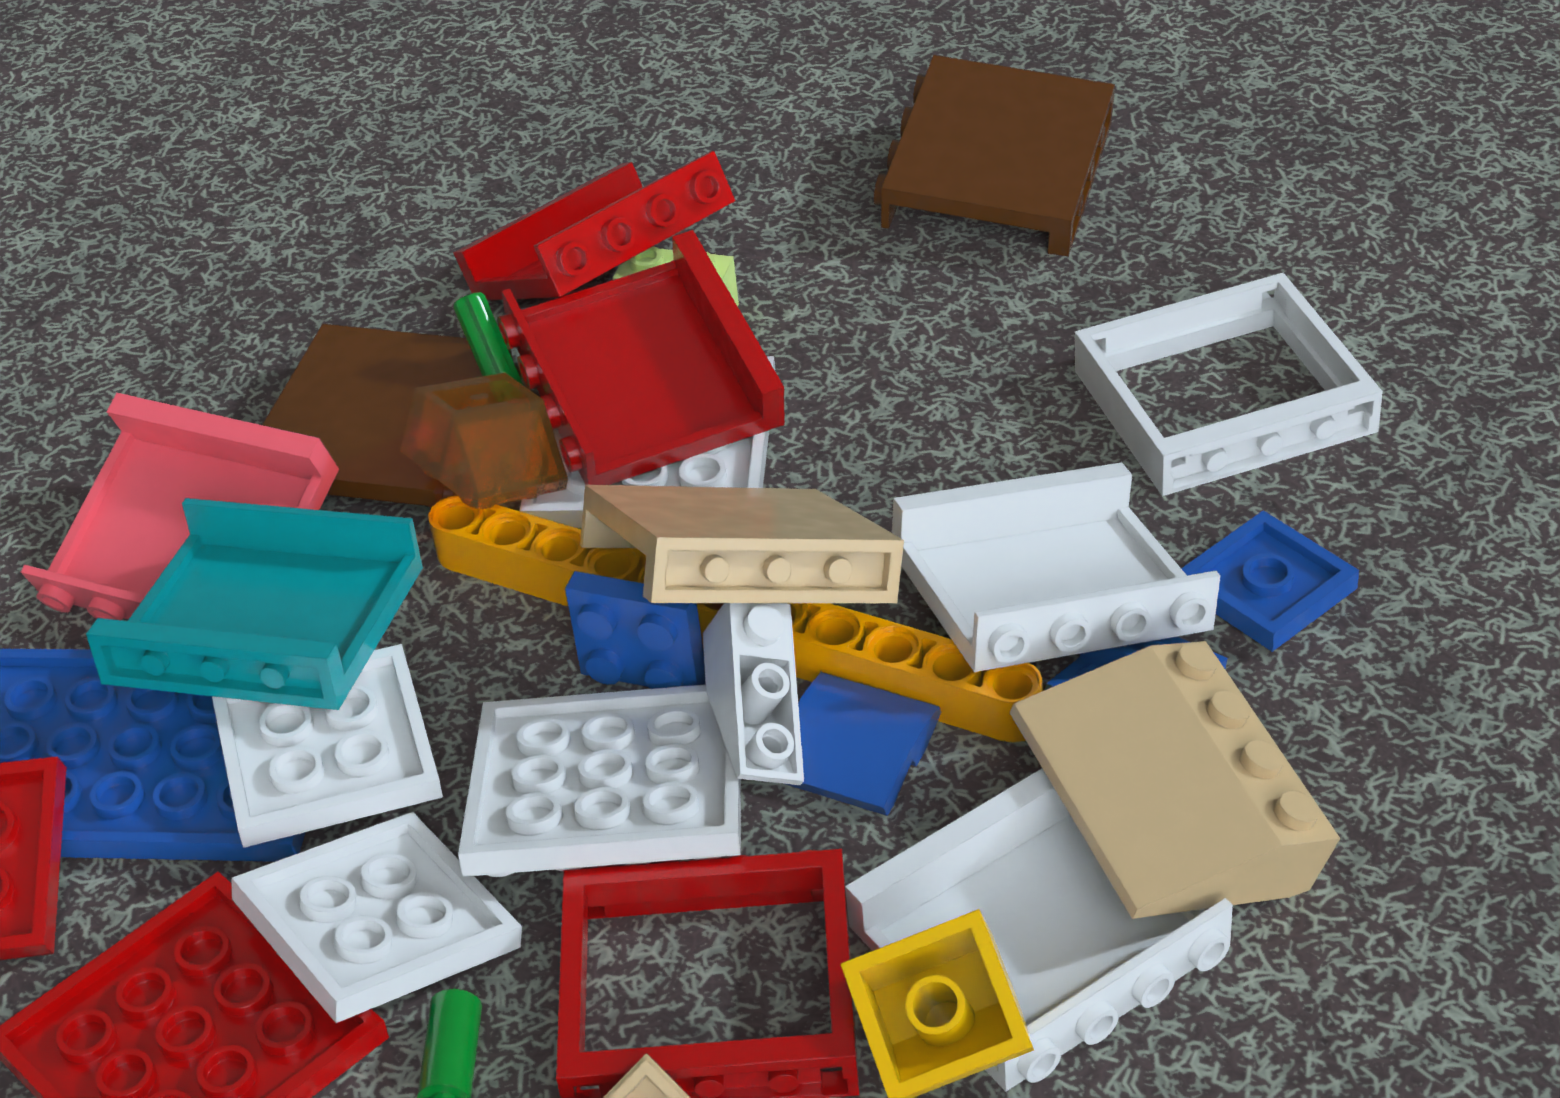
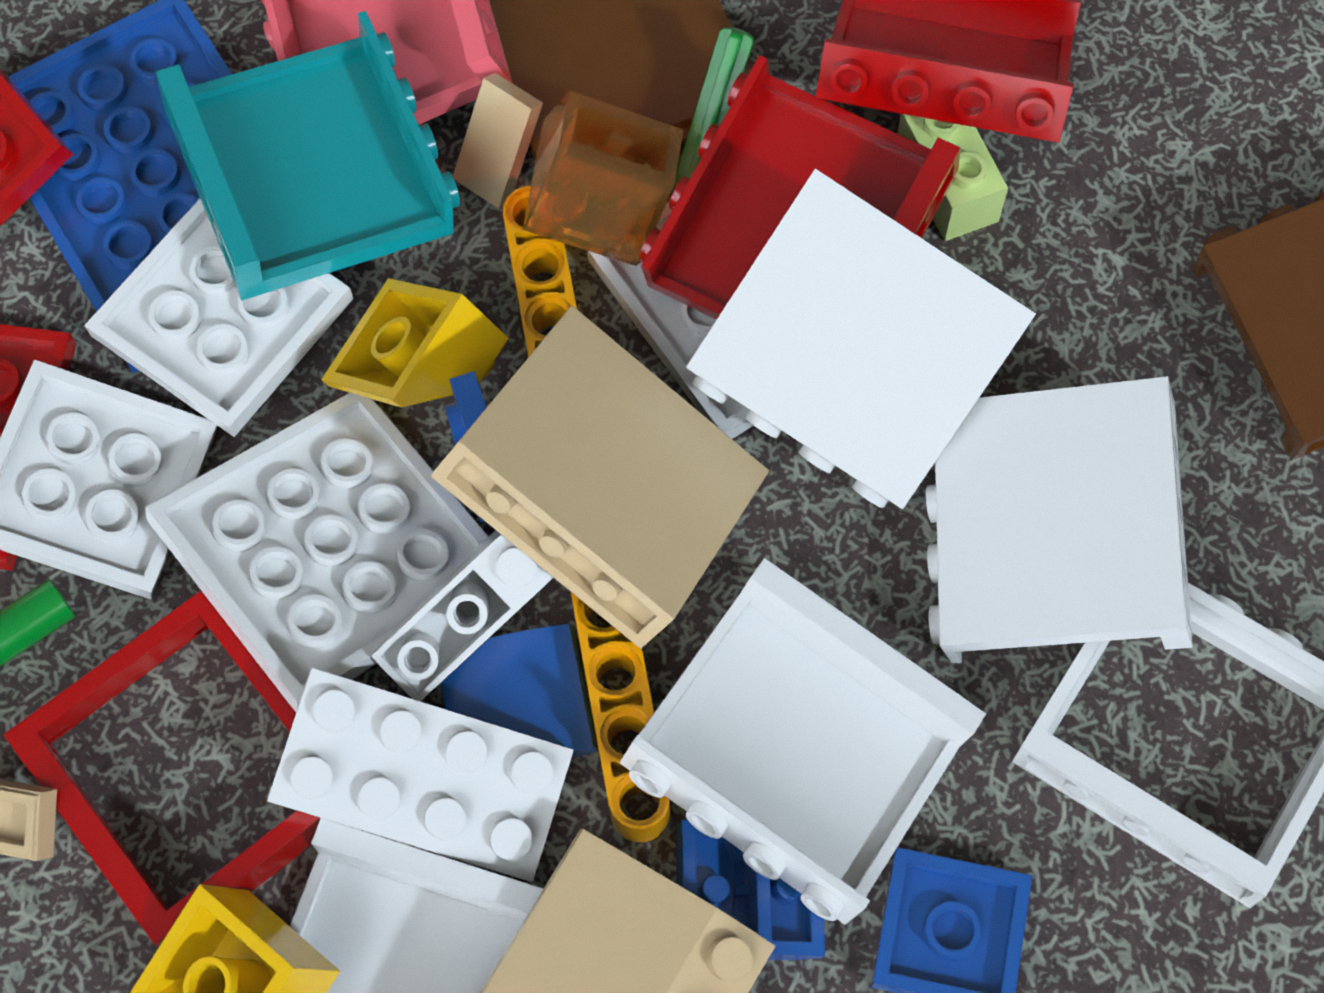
camera: 50 degrees right, 25 degrees up
(368, 481) = (497, 139): none -> tan tile
(493, 622) = (414, 344): none -> yellow slope
(778, 366) = (858, 342): none -> white panel
(861, 800) = (420, 775): none -> white plate
(1007, 353) = (1060, 521): none -> white panel

